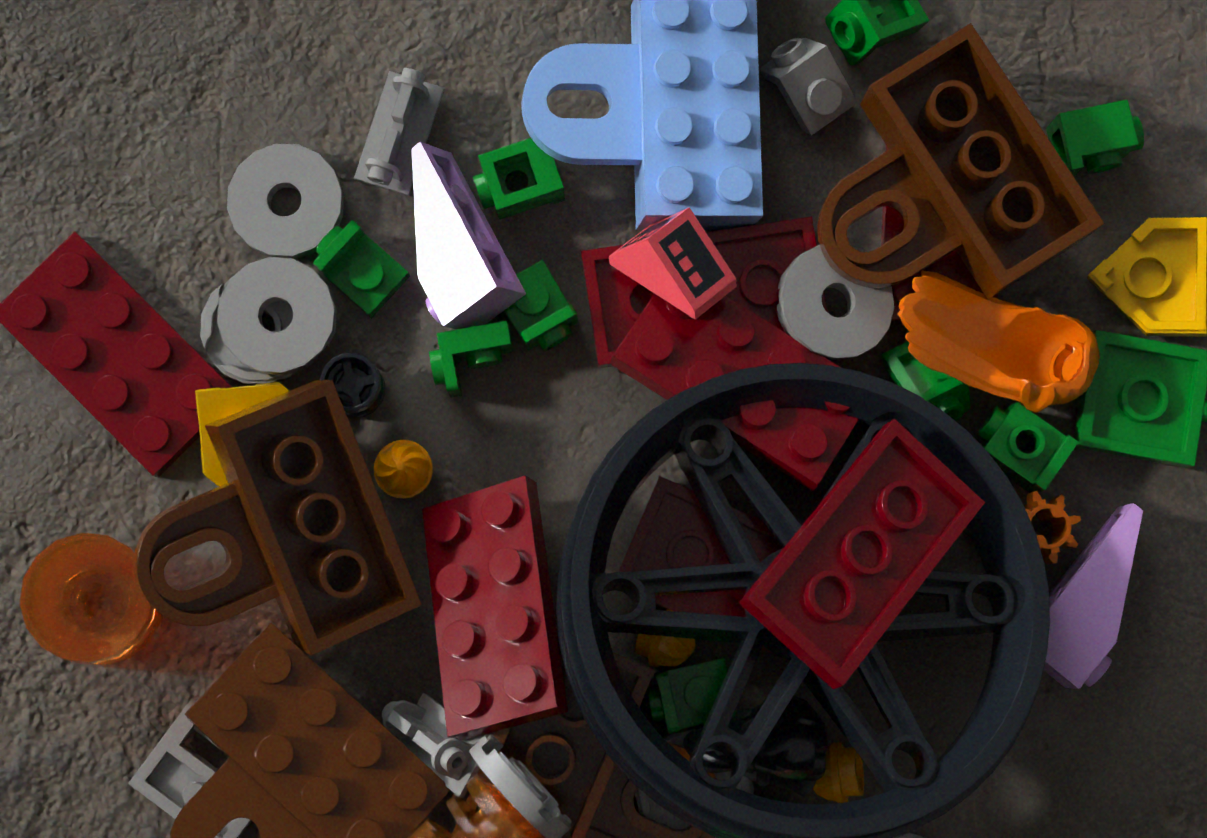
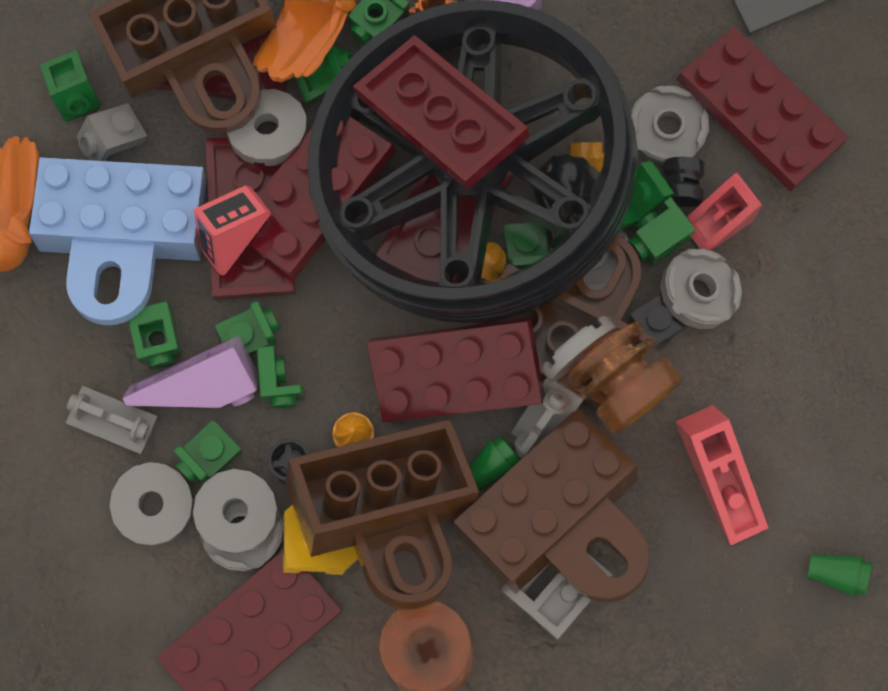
camera: 80 degrees left, 5 degrees down
(373, 671) = (493, 462): none -> green cone

